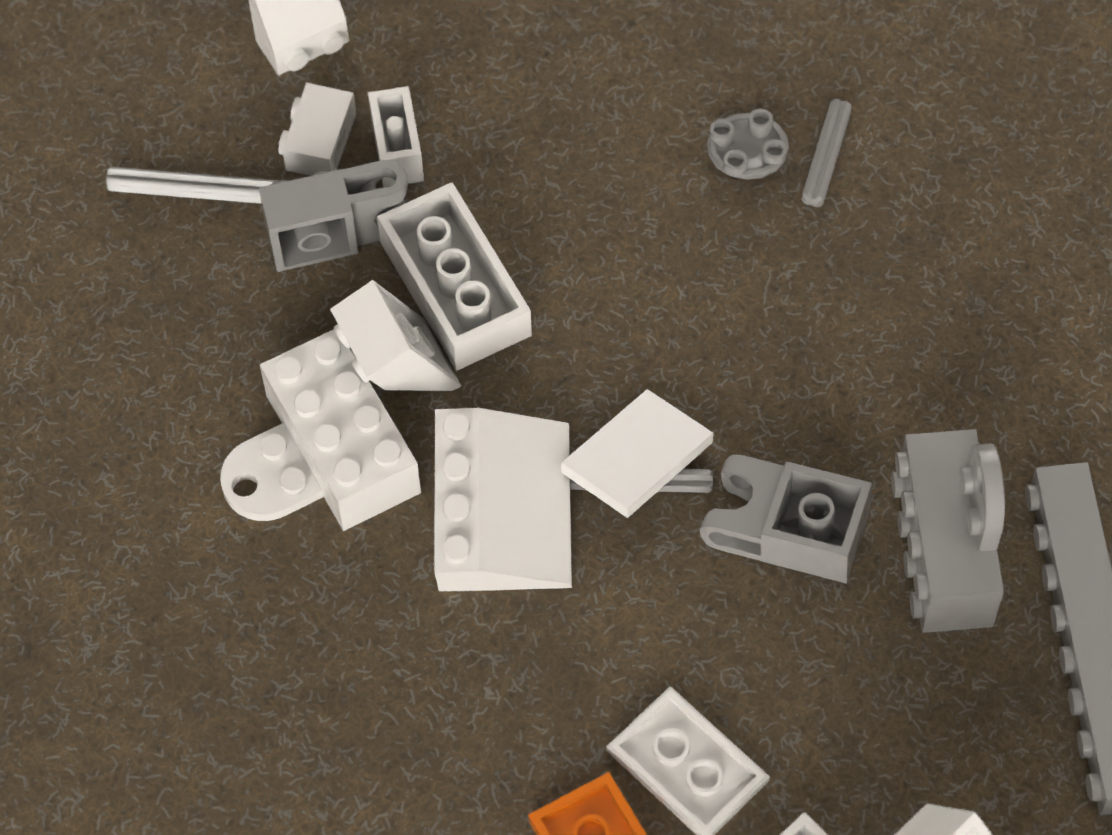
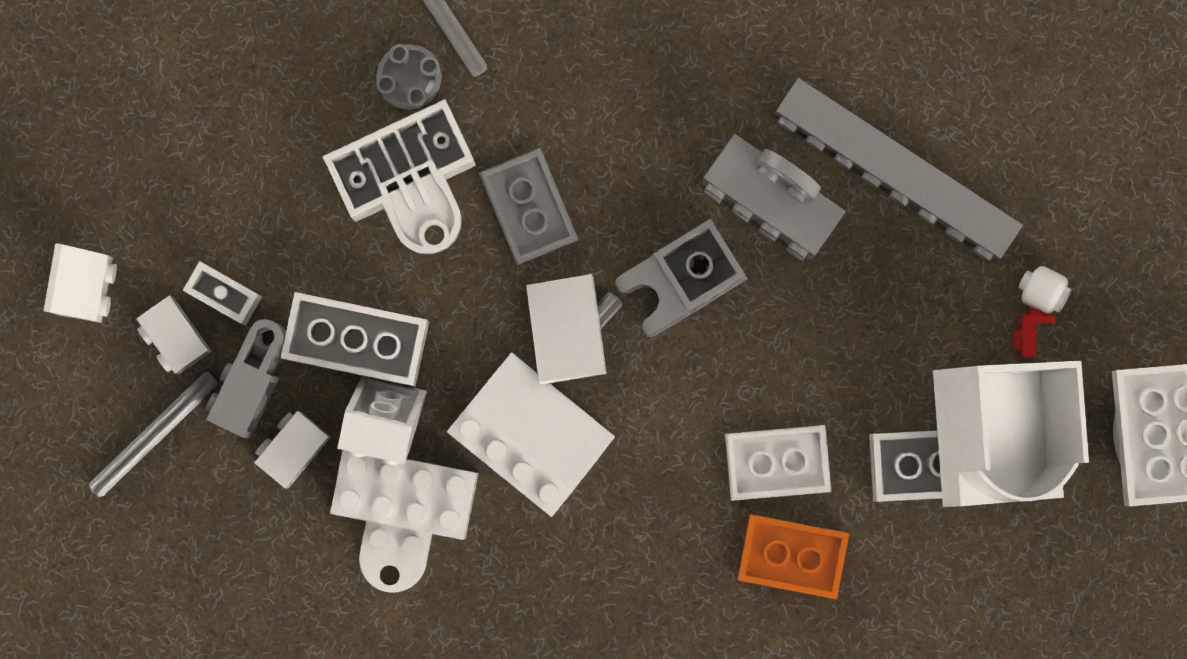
camera: 50 degrees left, 25 degrees up
(294, 305) = (291, 449): none -> white brick
(655, 192) = (406, 175): none -> white brick
(725, 337) = (528, 206): none -> light grey tile

